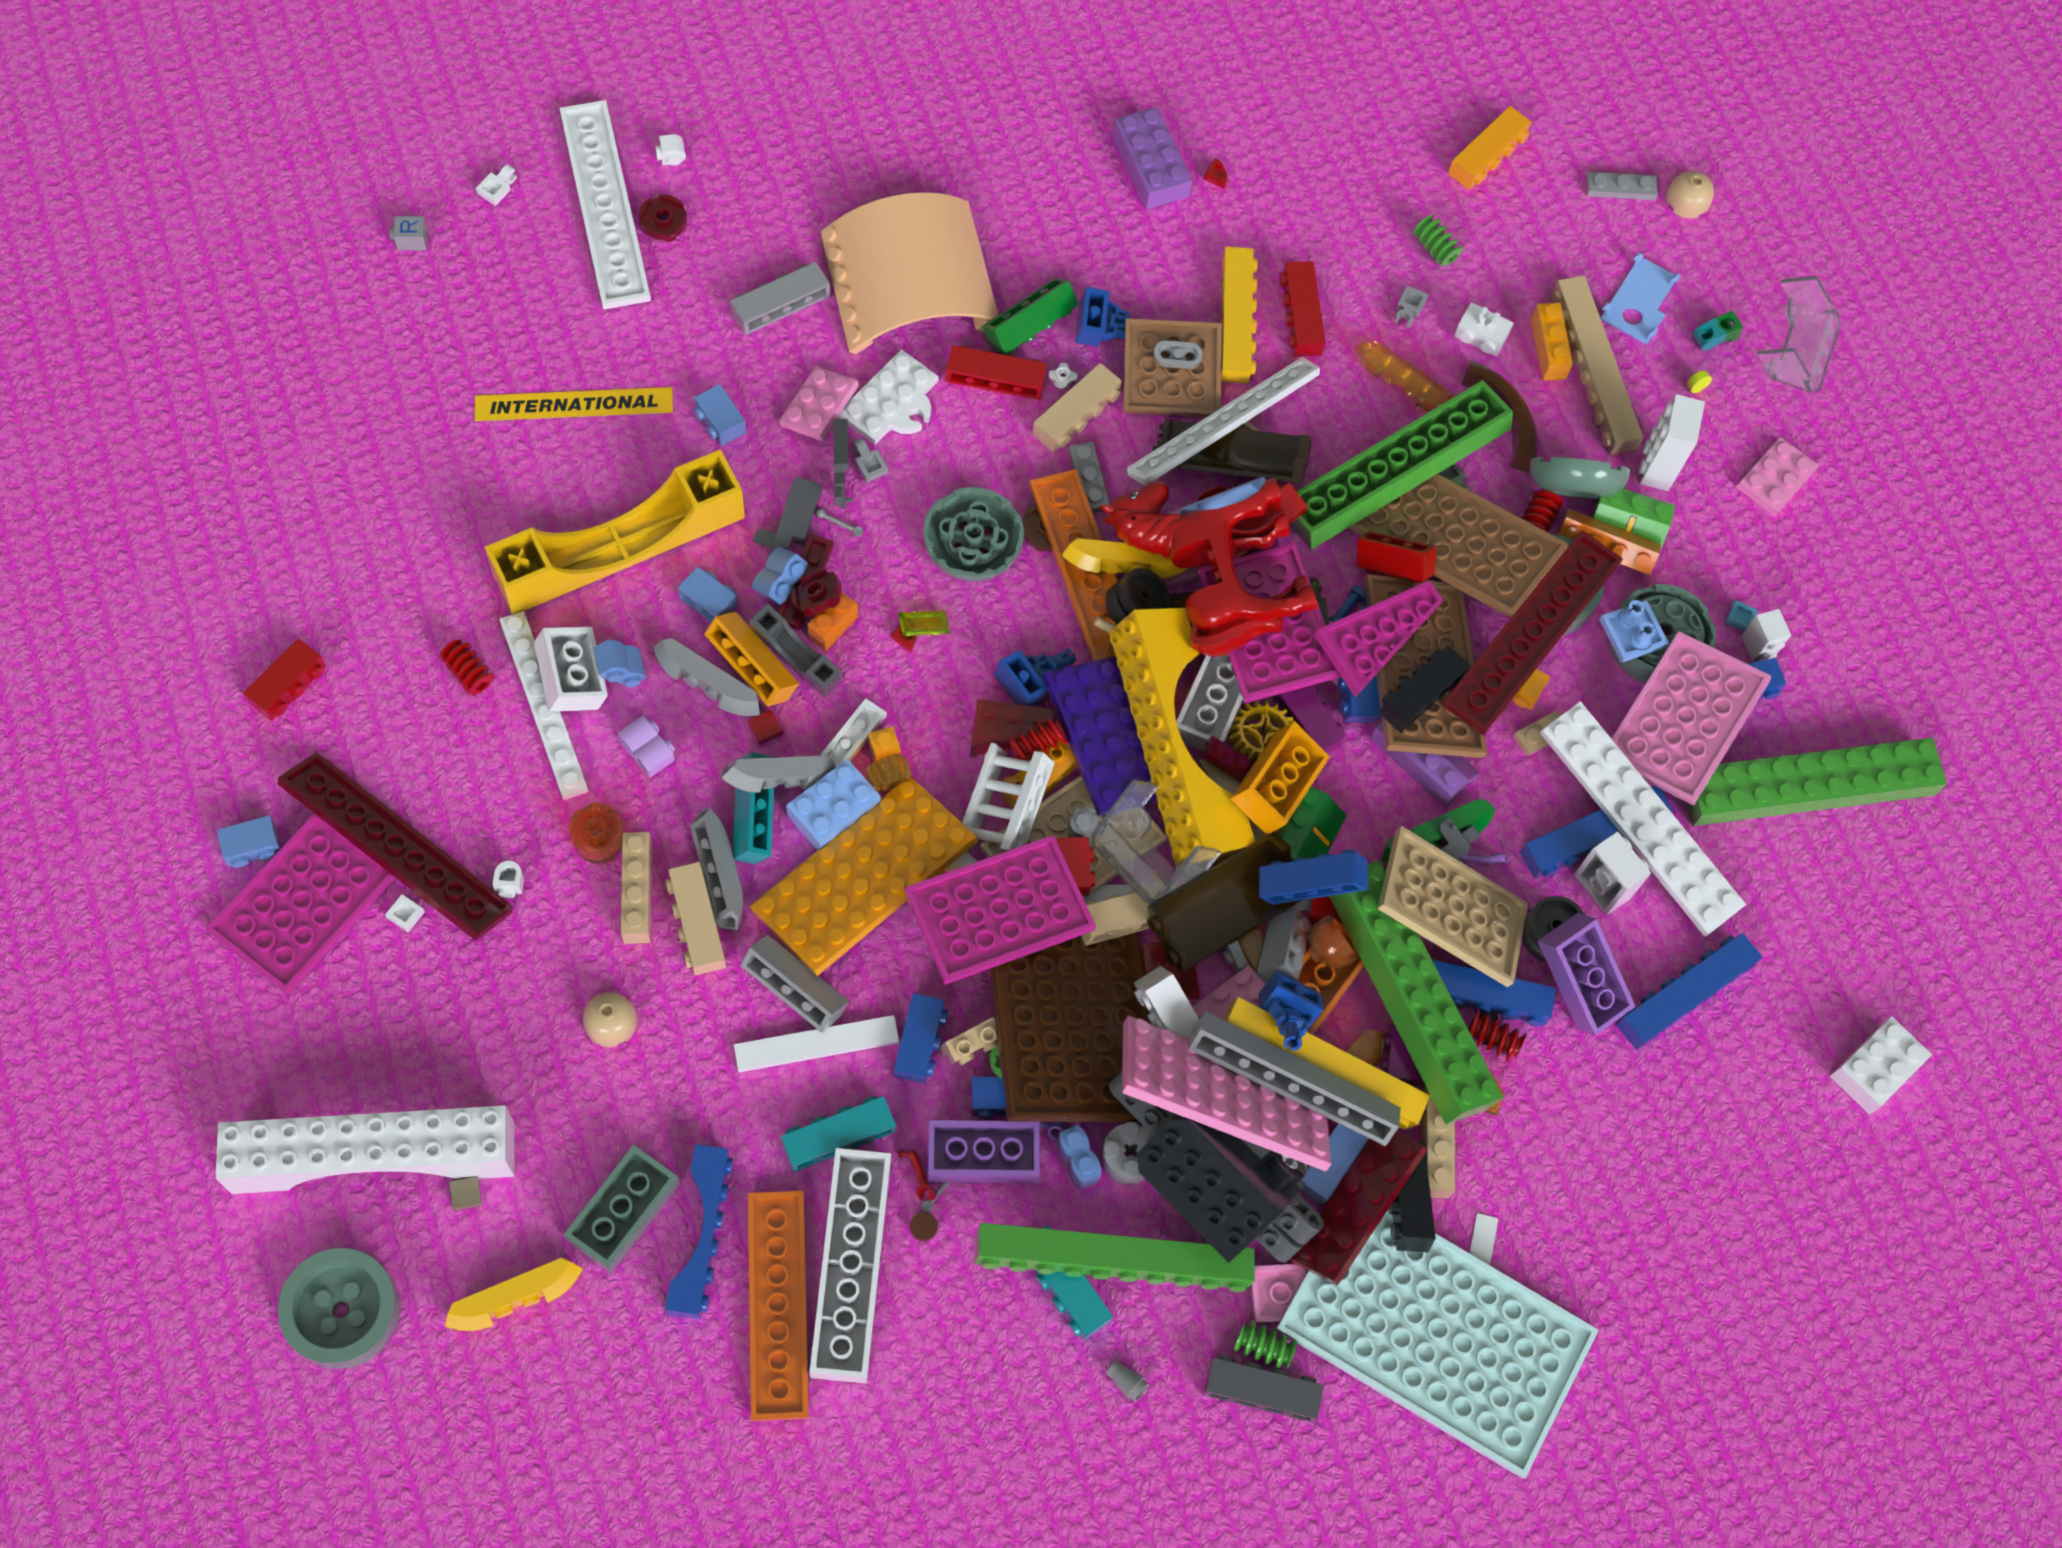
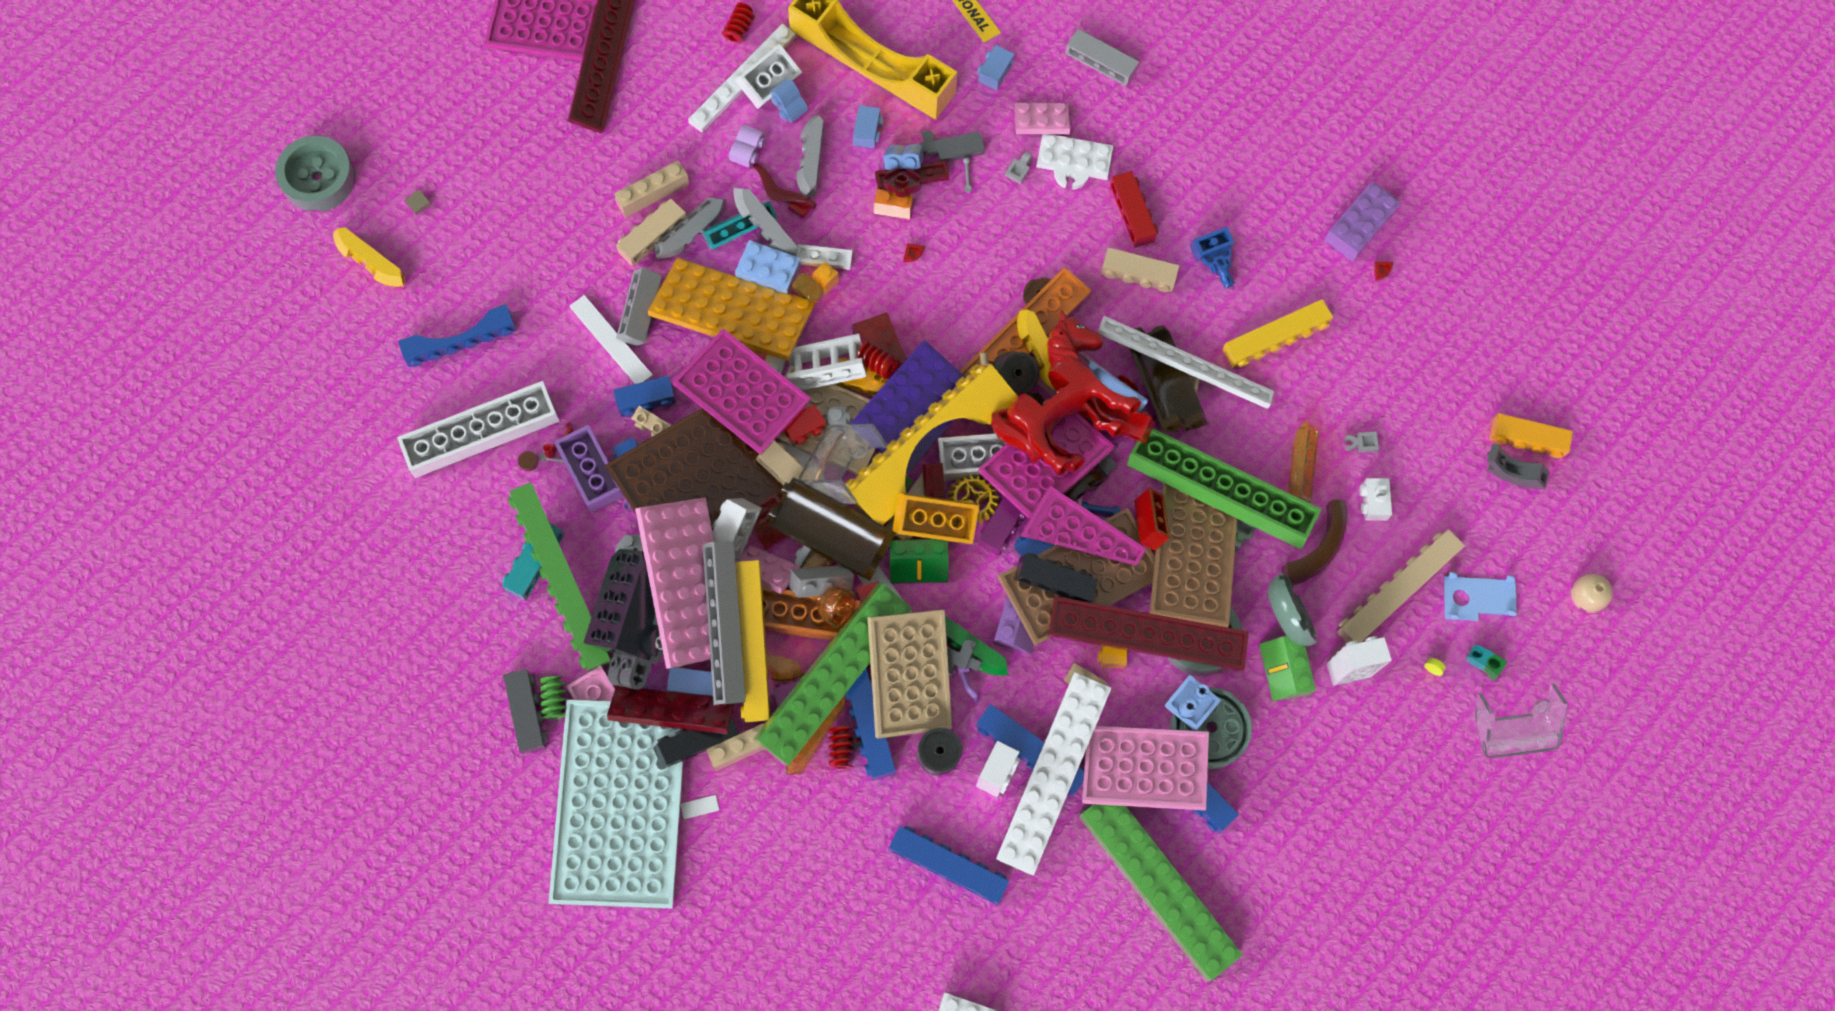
camera: 65 degrees right, 5 degrees up
(295, 1150) = (410, 134): white arch -> none
(404, 913) = (567, 77): white plate -> none
(508, 879) = (617, 118): white plate -> none
(584, 833) = (672, 146): clear orange brick -> none
(609, 1019) = (563, 219): tan cylinder -> none
(622, 1209) = (447, 286): sand green brick -> none
(737, 742) = (781, 195): none -> dark red piece
(751, 658) = (838, 171): light orange brick -> none
(777, 1306) = (436, 402): orange plate -> none
(784, 642) = (862, 177): dark grey arch -> none
(840, 431) = (1004, 149): dark grey piece -> none
(845, 1130) = (558, 381): teal brick -> none
(906, 264) = (1175, 118): light nougat panel -> none
(923, 623) = (926, 258): clear neon green tile -> none
(979, 510) = (996, 234): sand green brick -> none
(1023, 675) = (924, 329): blue brick -> none
(1030, 316) = (1187, 207): green brick -> none
(1058, 380) = (1158, 255): white plate -> none
(1082, 1162) = (619, 525): medium blue brick -> none
(1085, 461) = (1096, 302): light grey plate -> none
(1128, 1381) = (489, 629): light grey cone -> none
(1167, 389) = (1207, 312): medium nougat plate -> none
(1177, 353) = (1215, 308): light grey plate -> none
(1291, 1006) = (772, 598): blue brick -> none
(1303, 309) = (1312, 373): red brick -> none
(1313, 877) = (870, 569): blue brick -> none
(1436, 241) = (1426, 435): bright green piece -> none
(1525, 181) = (1515, 471): none -> dark grey arch
(1543, 509) = (1251, 602): red piece -> none
(1551, 341) = (1397, 548): light orange brick -> none
(1586, 973) = (911, 783): medium lavender brick -> none
(1621, 185) = (1566, 541): light grey plate -> none
(1635, 550) = (1260, 660): orange brick -> none
(1740, 616) = (1263, 780): medium azure tile -> none
(1766, 635) = (1251, 800): white brick -> none
(1777, 476) = (1395, 757): bright pink plate -> none

